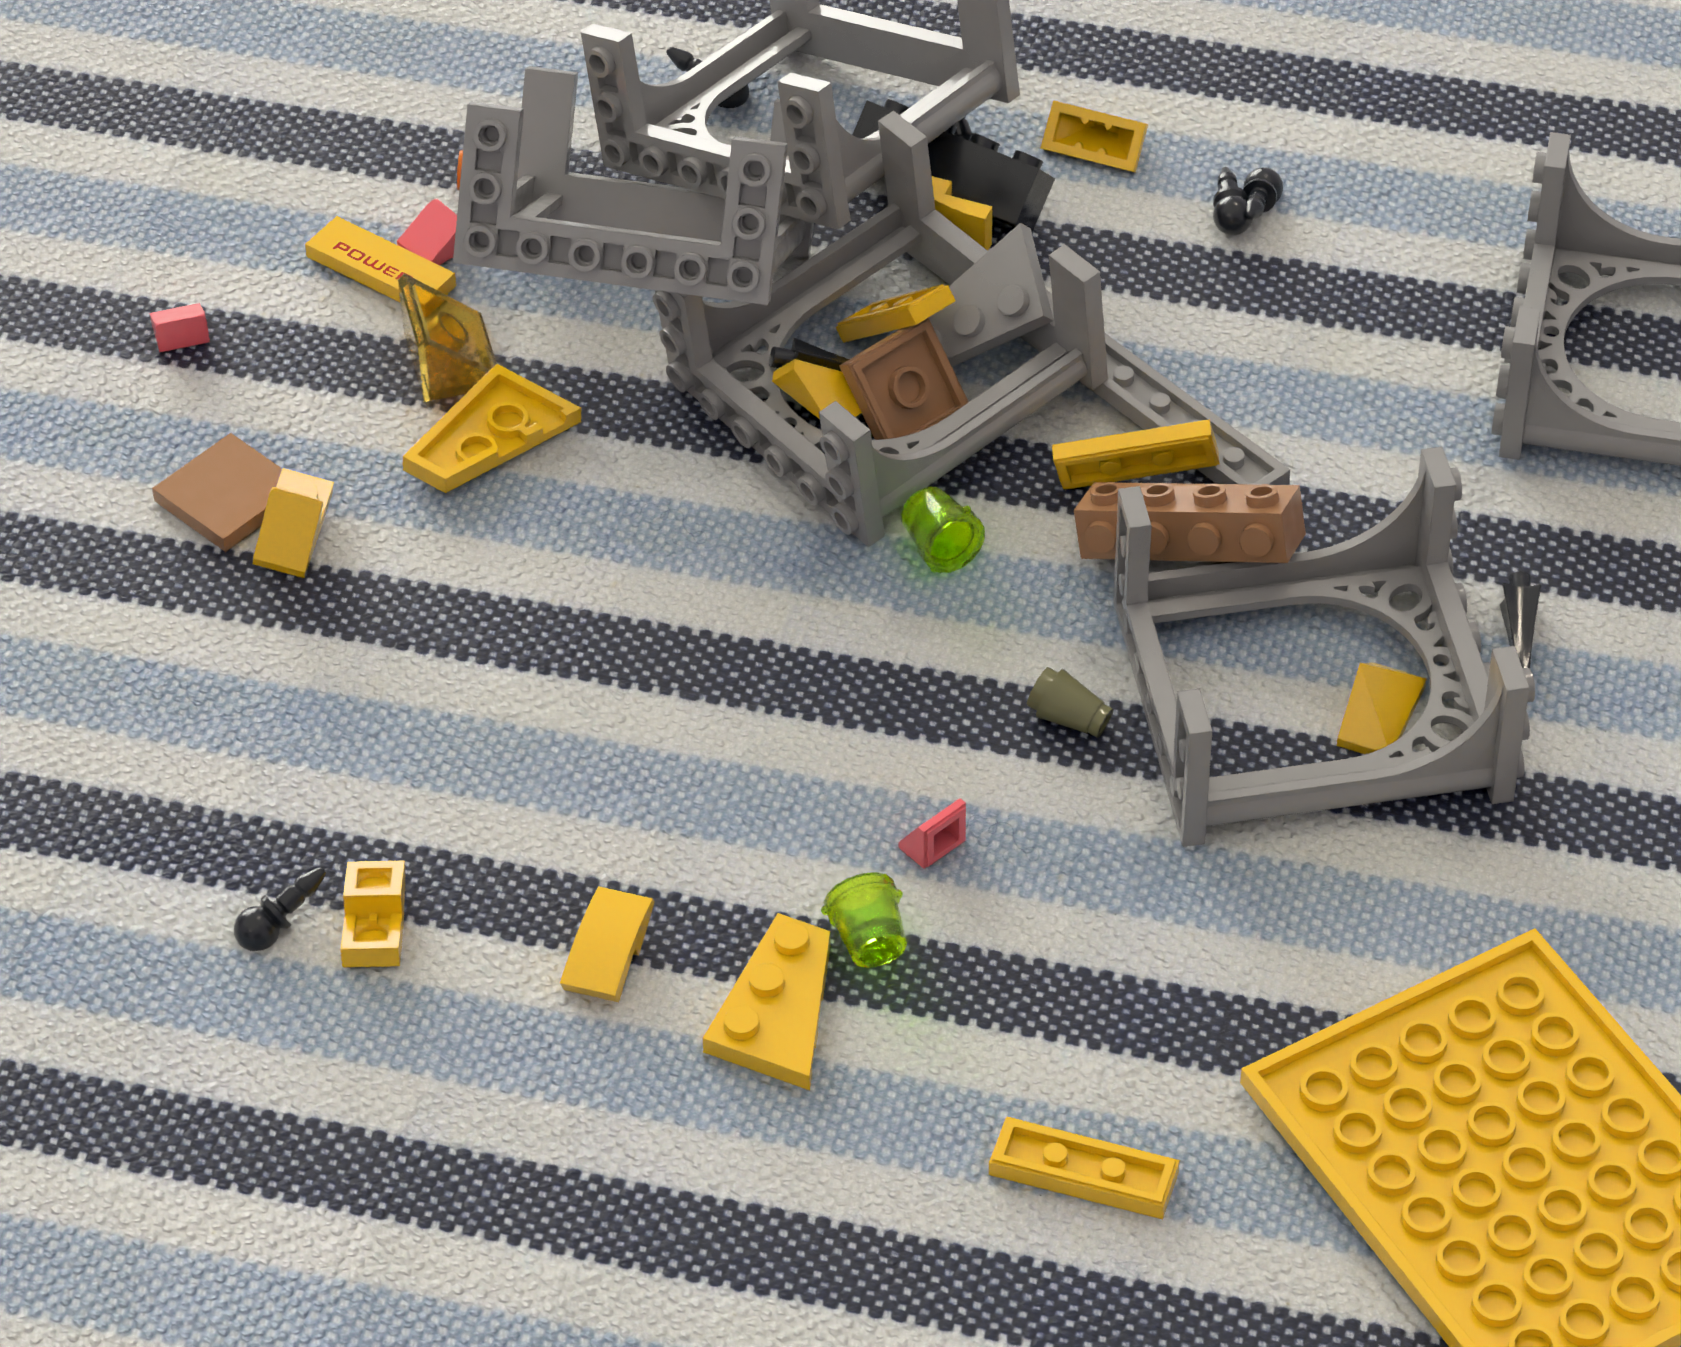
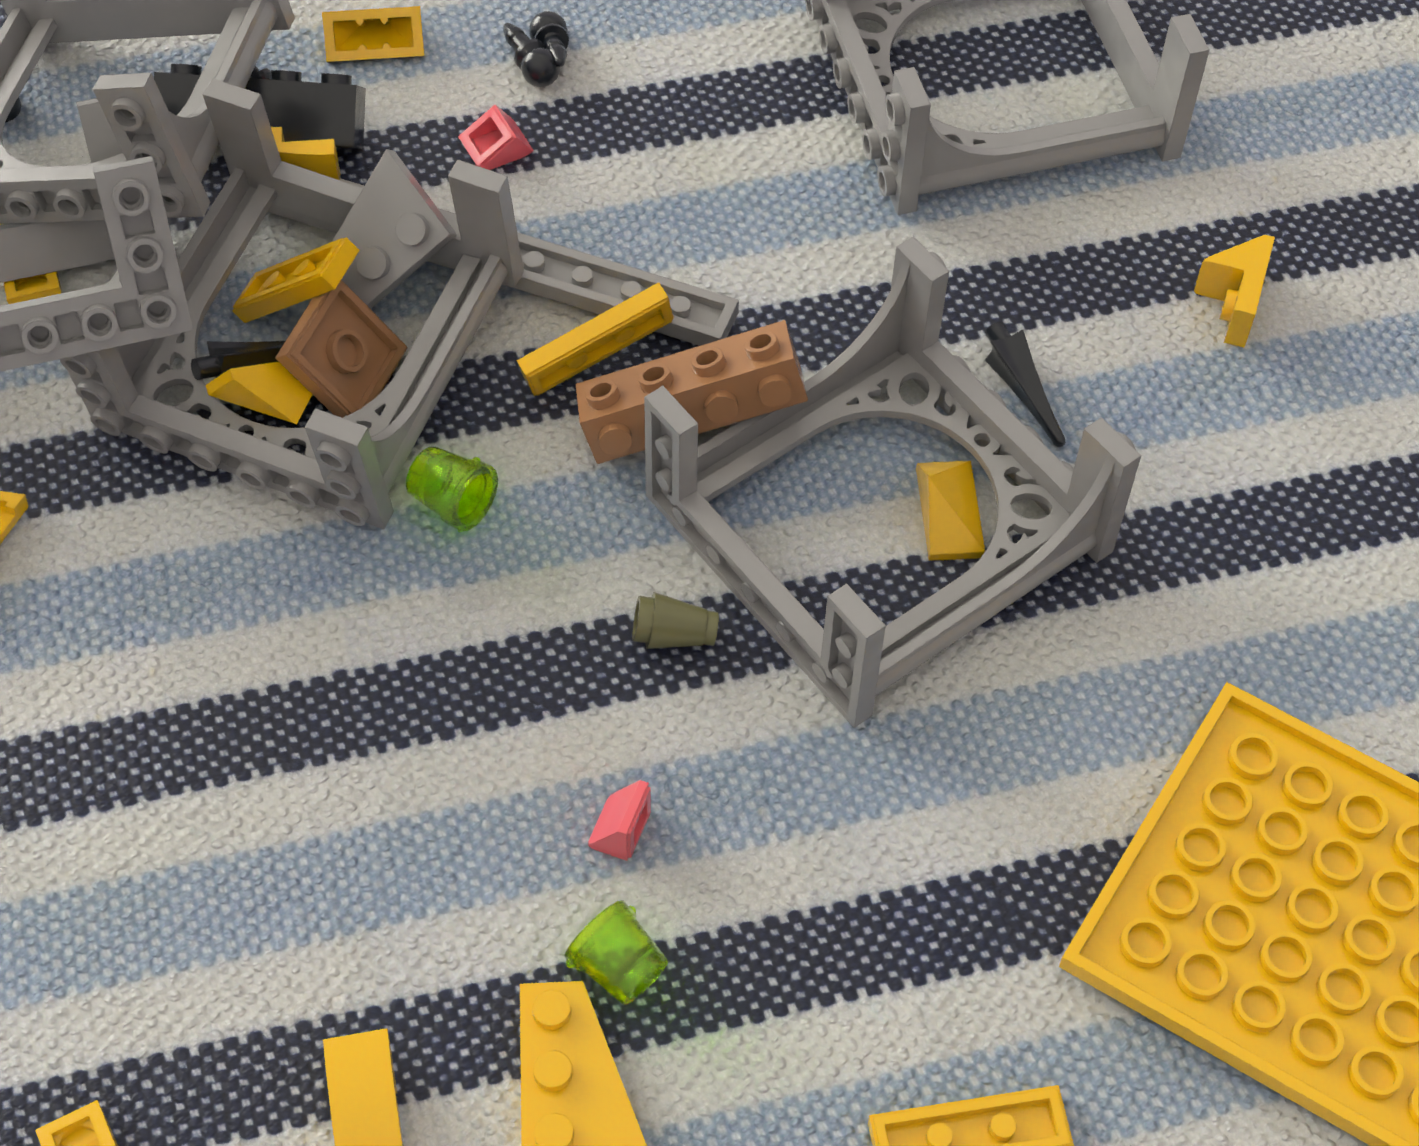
camera: 30 degrees left, 10 degrees up
(1155, 265) = (495, 140): none -> coral slope

